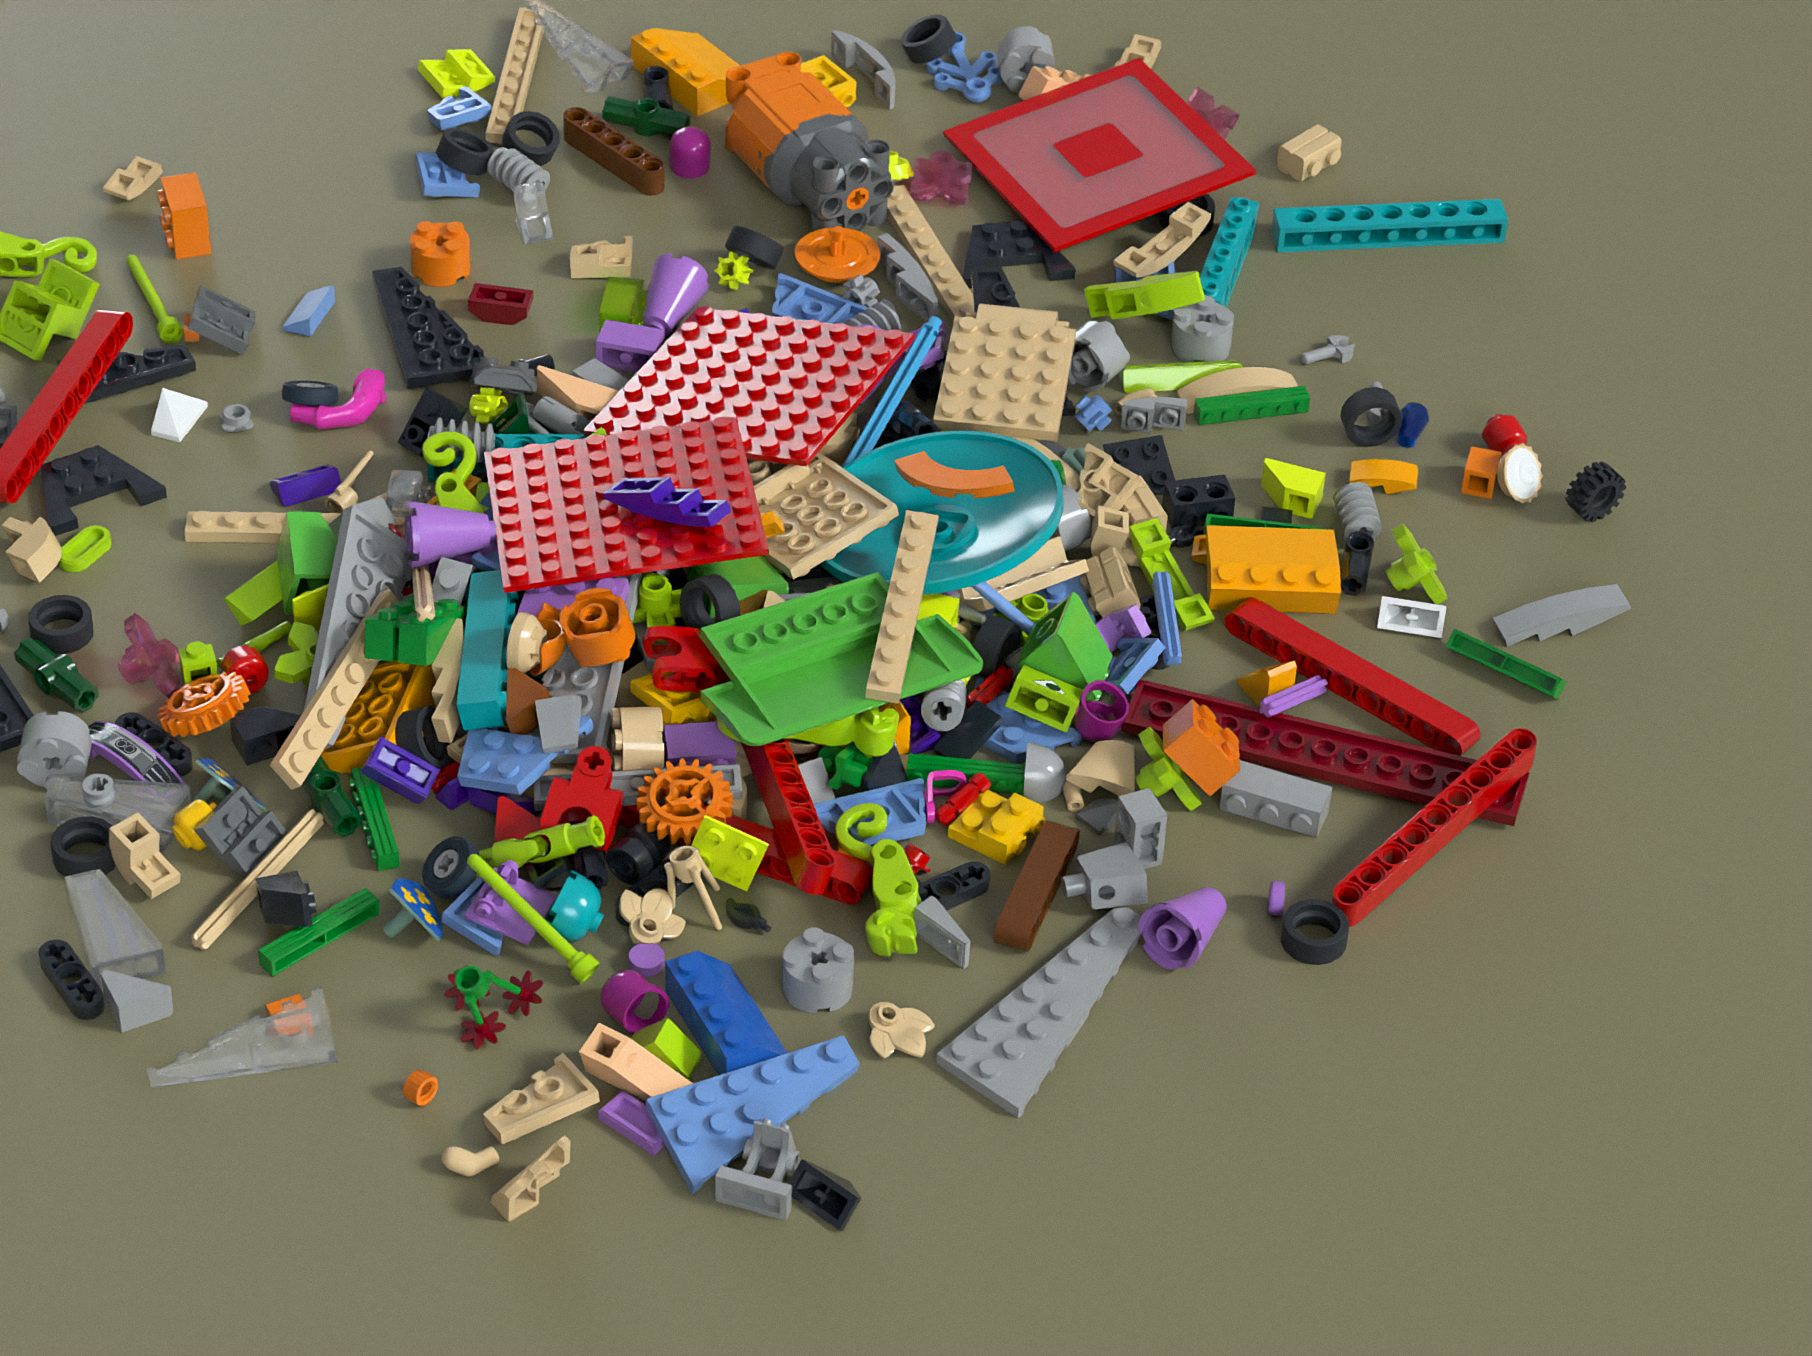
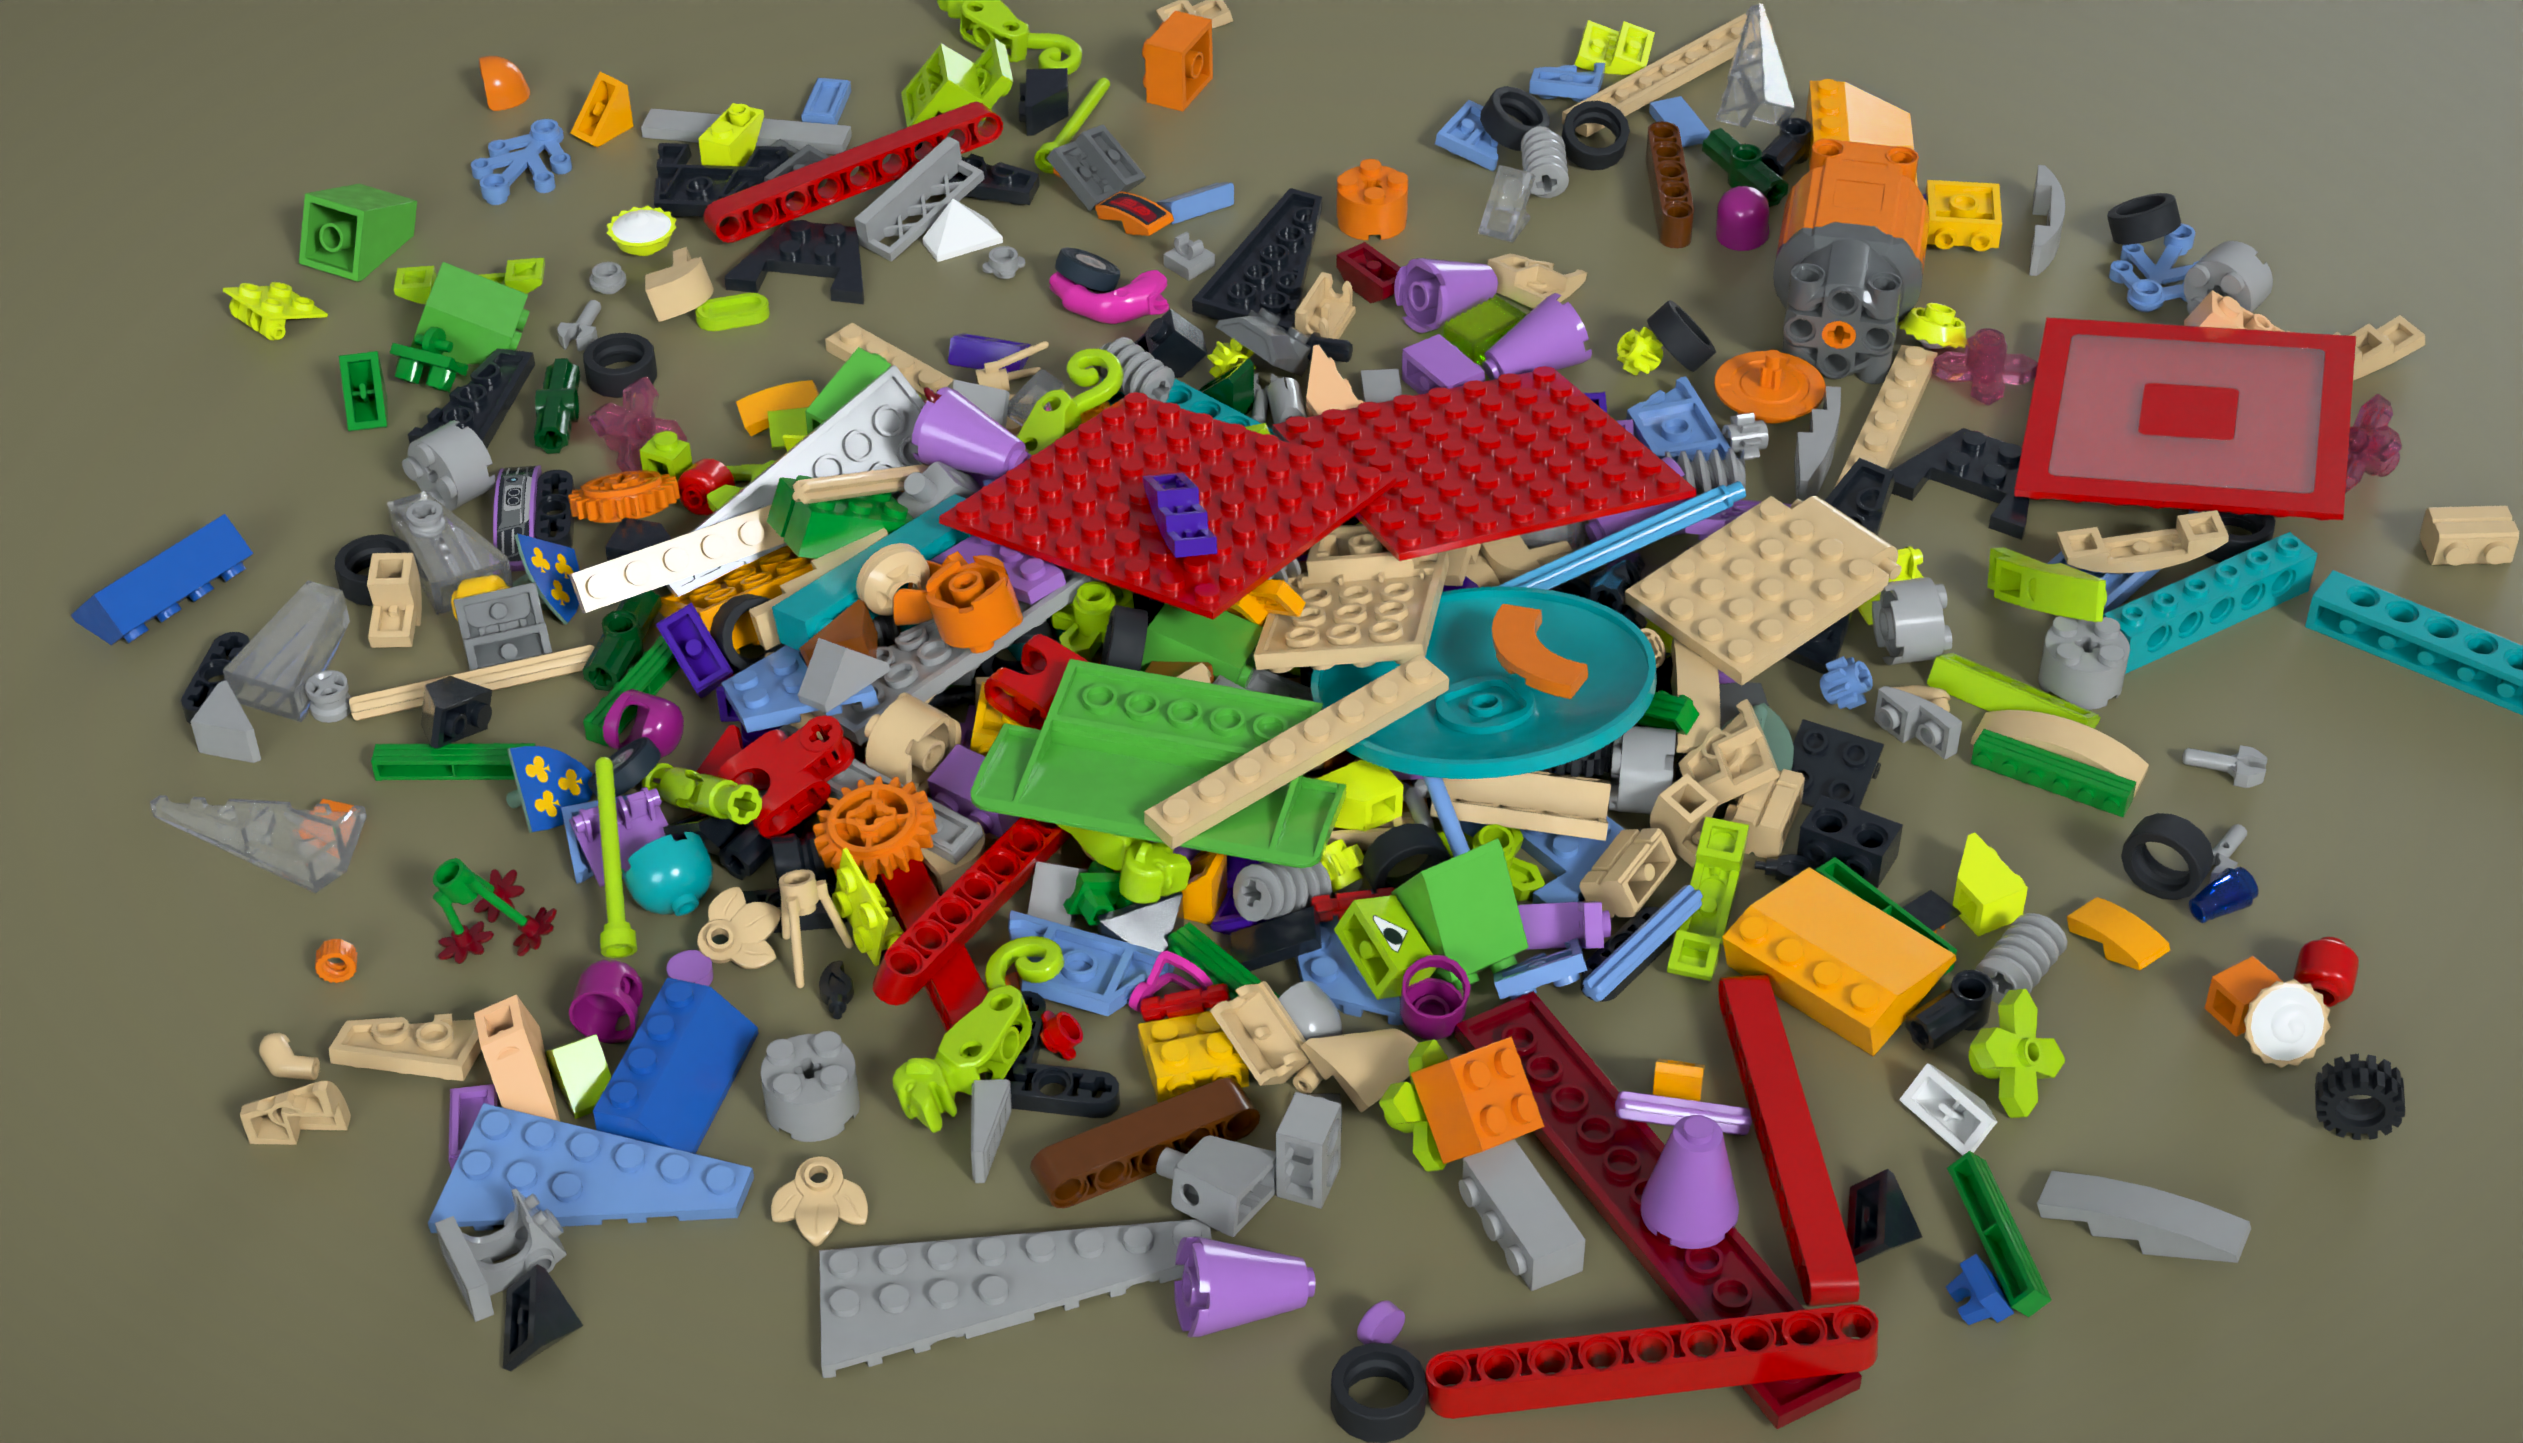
camera: 45 degrees right, 0 degrees up
(114, 287) = (1043, 99): none -> black slope
(118, 401) = (909, 198): none -> light grey fence
(175, 940) = (328, 696): none -> light grey wheel
(208, 598) = (792, 395): none -> light orange slope
(290, 339) = (1137, 213): none -> slope
(358, 353) = (1188, 257): none -> light grey tile
(421, 830) = (655, 719): none -> magenta helmet
(499, 341) = (1324, 309): none -> tan hinge
(555, 103) = (1679, 113): none -> medium blue tile
(565, 295) = (1441, 290): none -> medium lavender cone
(1037, 784) = (1262, 1033): none -> tan hinge
(1358, 723) = (1692, 1186): none -> medium lavender cone
(1440, 687) = (1879, 1217): none -> black slope
(1532, 694) = (1985, 1292): none -> blue tile

